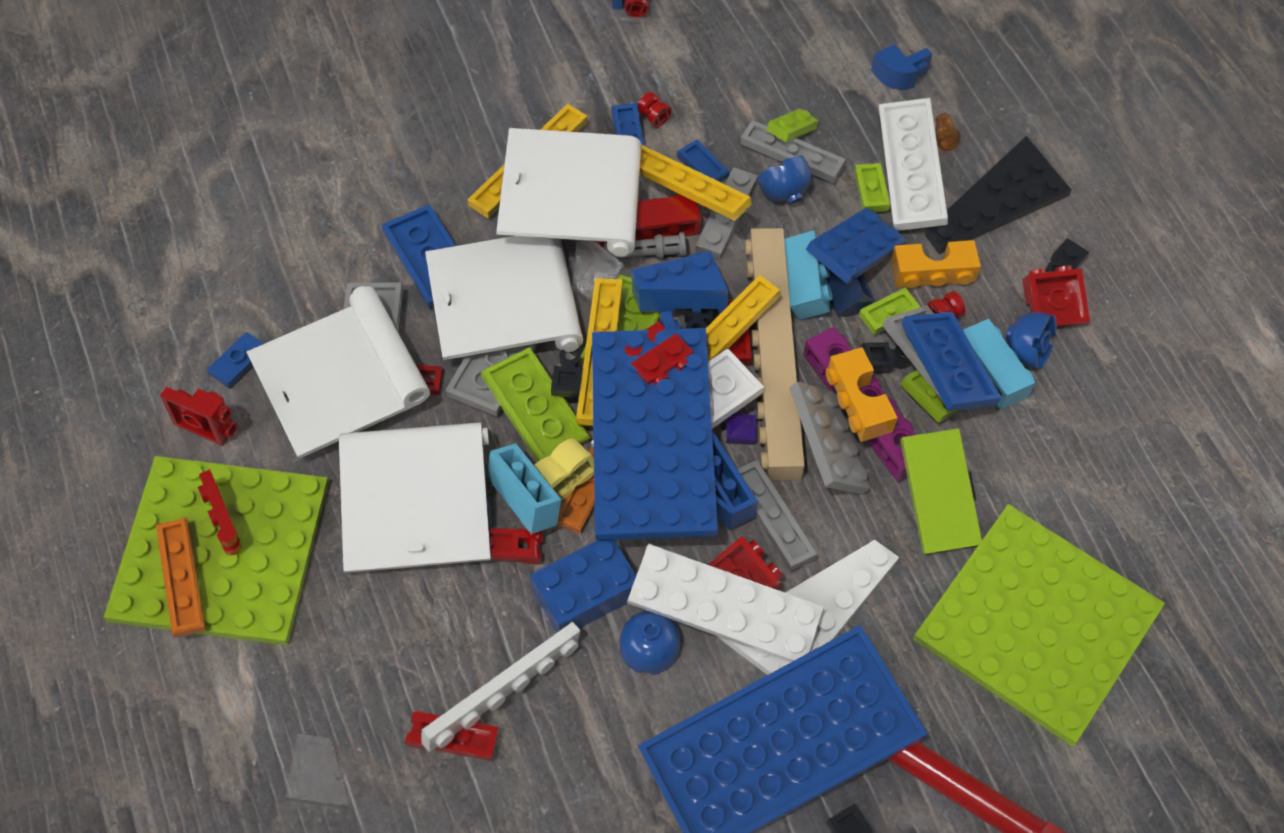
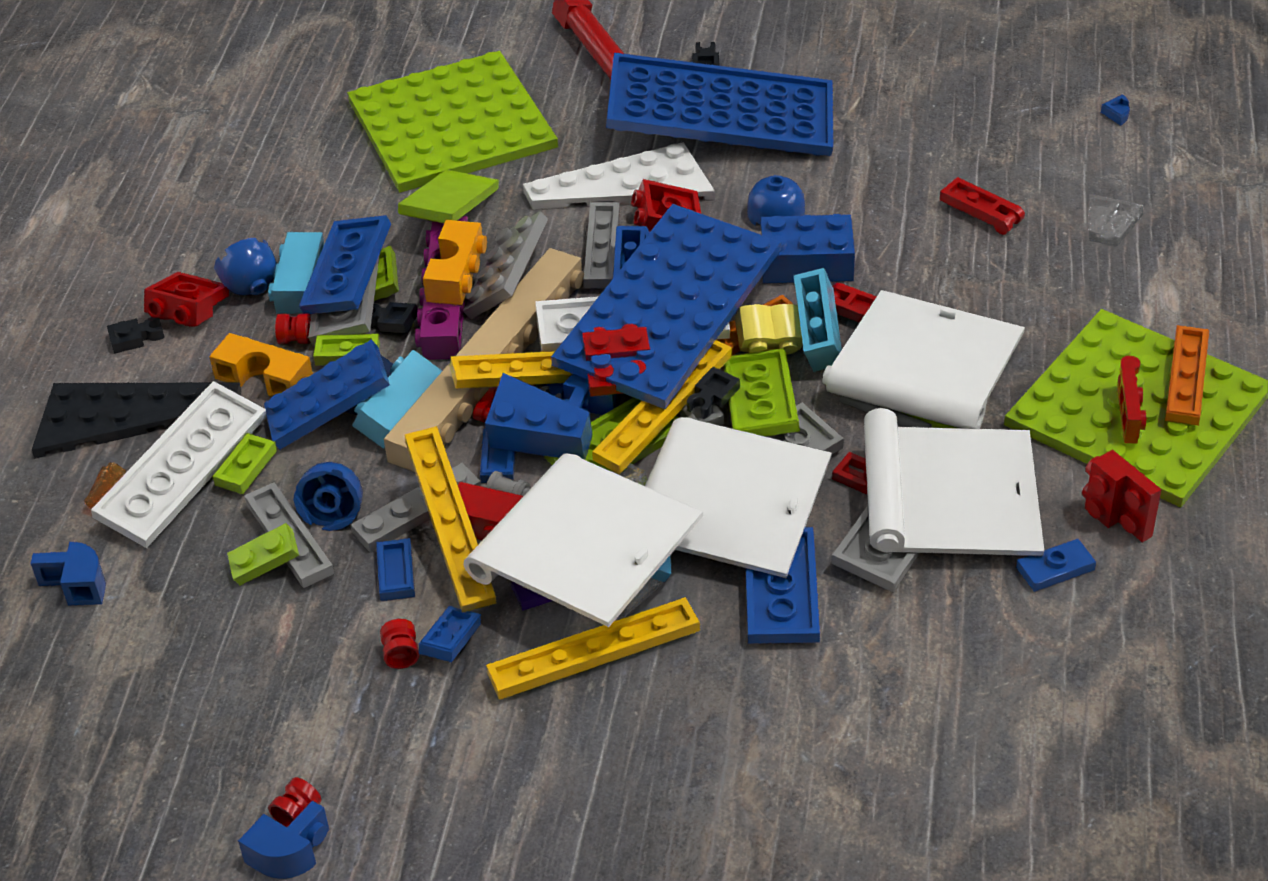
camera: 145 degrees left, 15 degrees down
(493, 693) = (929, 201): white plate -> none
(725, 604) = (702, 180): white plate -> none

